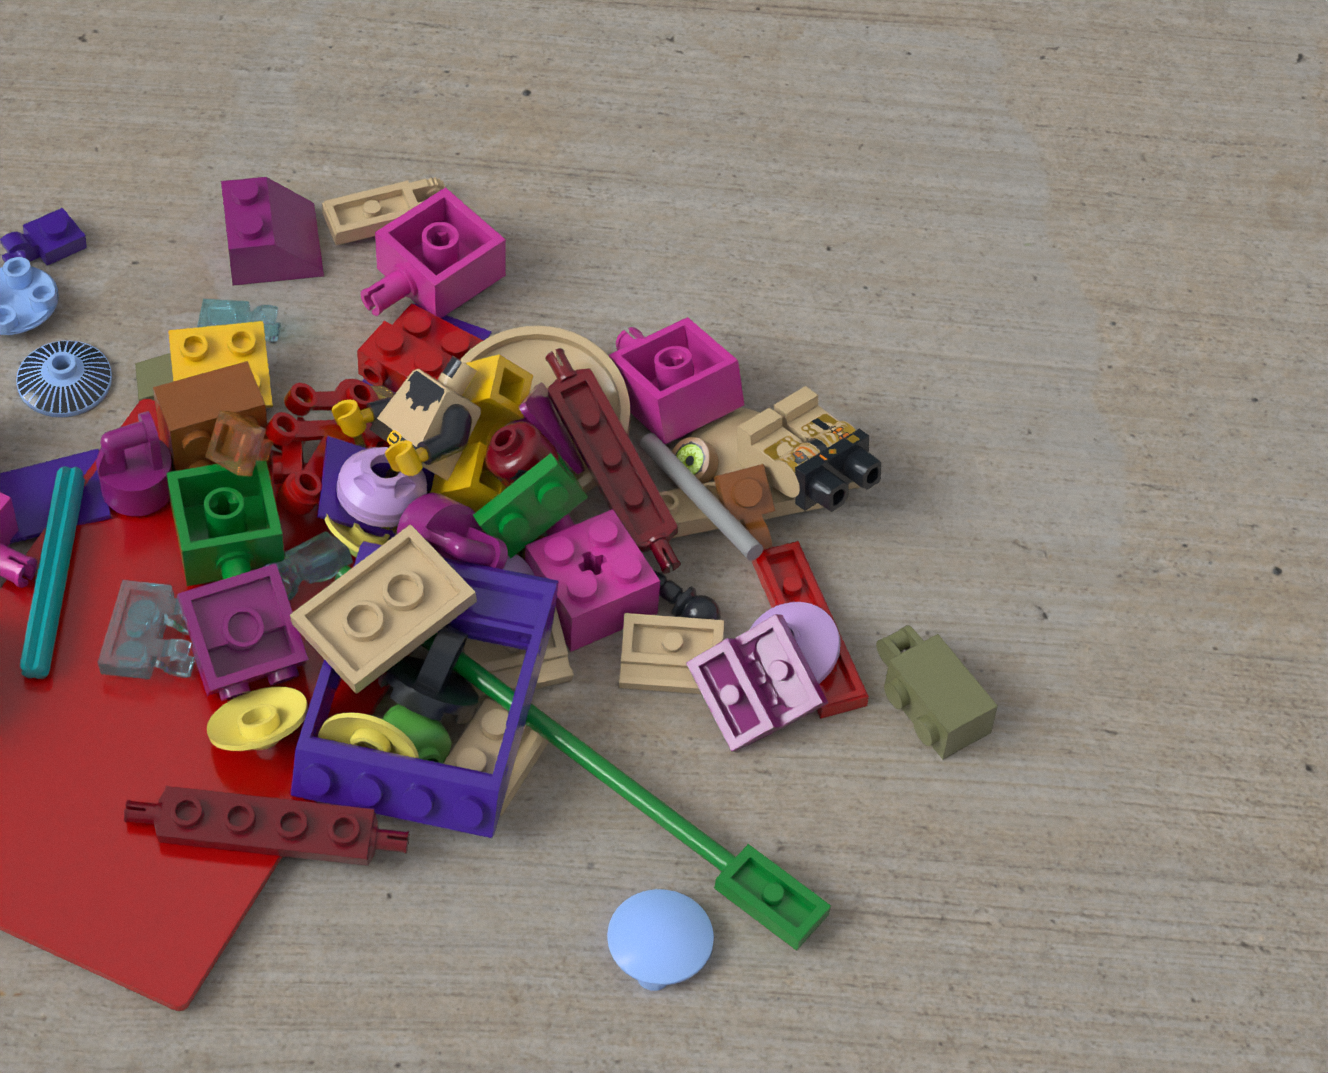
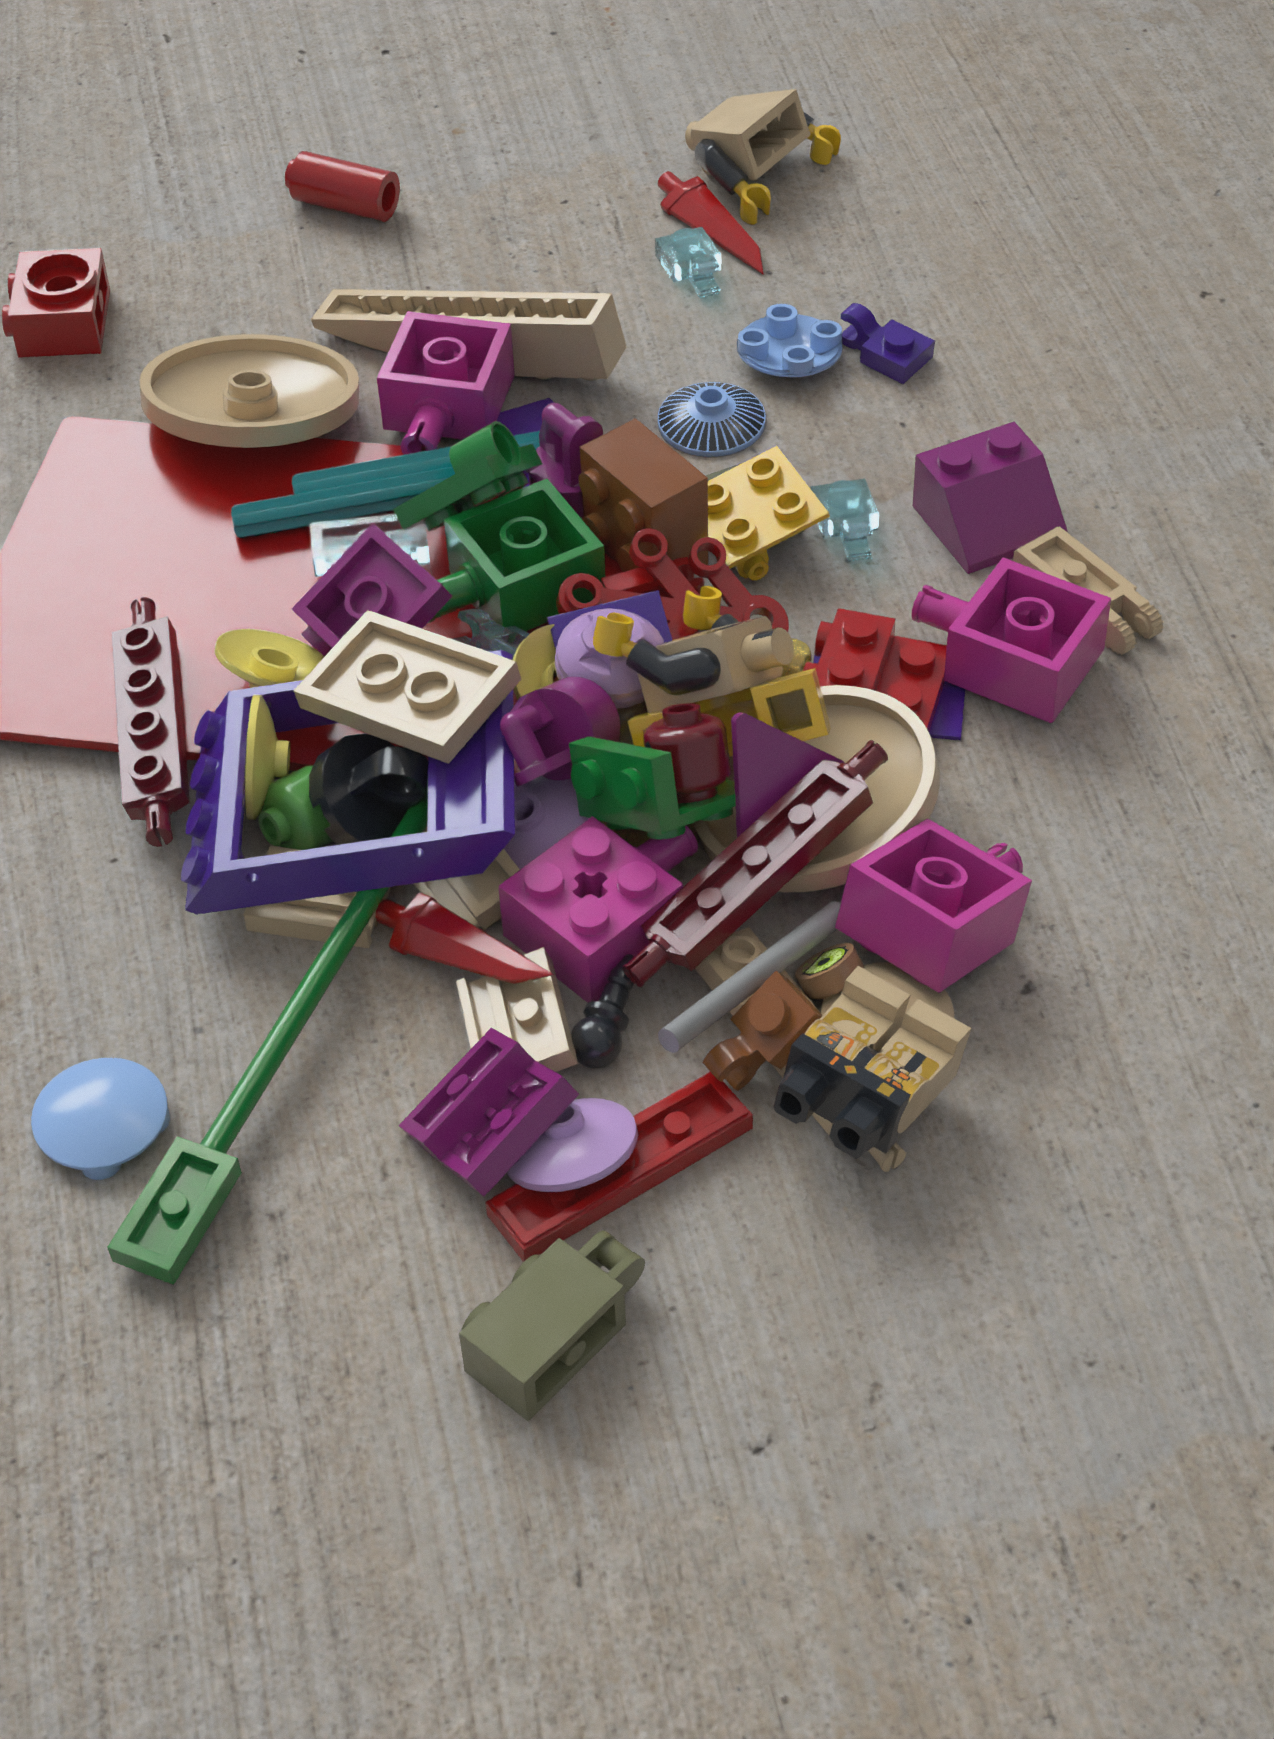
camera: 80 degrees right, 5 degrees down
(70, 623) = (332, 503): none -> teal axle
(140, 530) = (484, 467): none -> green plate
(237, 443) = (593, 509): clear orange tile -> none
(577, 679) = (444, 937): none -> red bar

